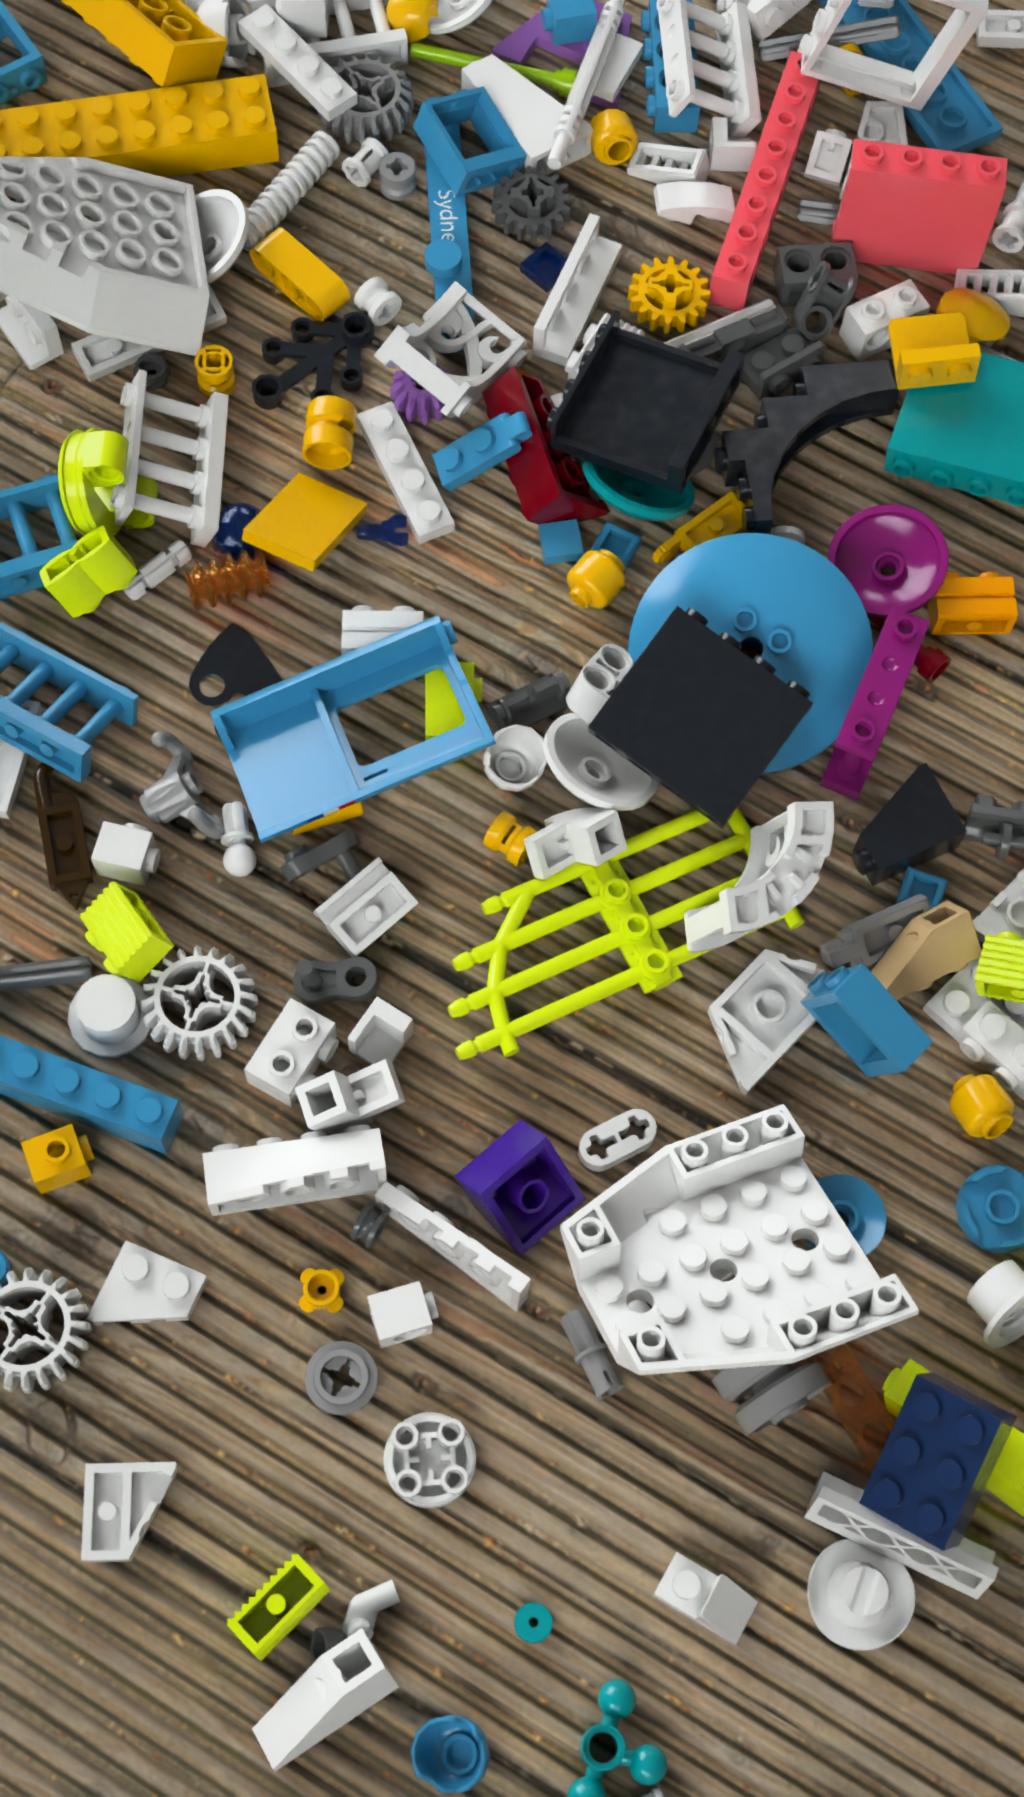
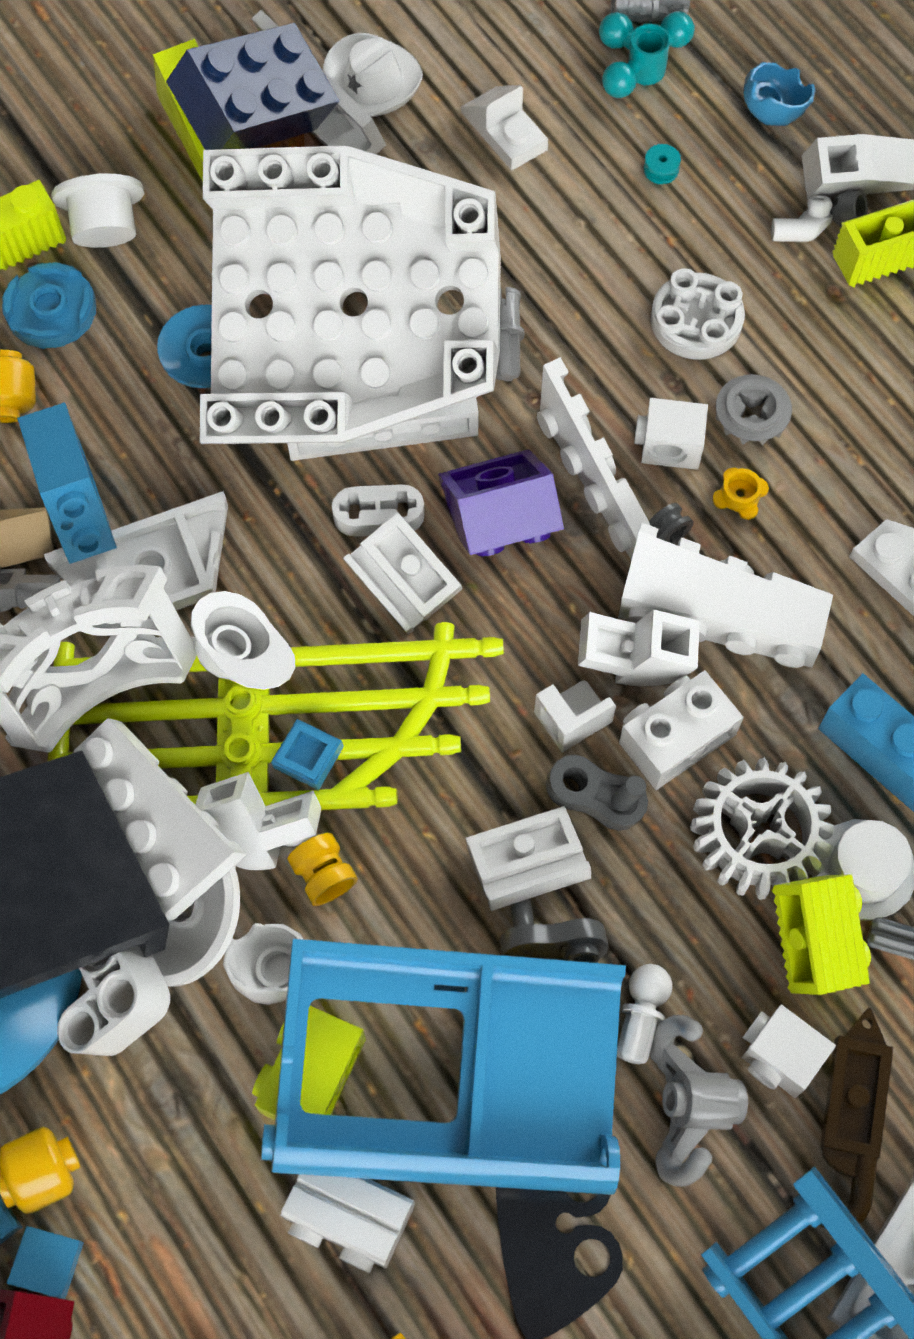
camera: 150 degrees left, 0 degrees up
(531, 702) = (209, 1040): dark grey hinge -> none
(563, 904) = (307, 754): none -> dark azure tile
(567, 1087) = (403, 573): none -> white plate
(650, 804) = (166, 830): none -> white wing
(650, 942) = (240, 642): none -> white piece

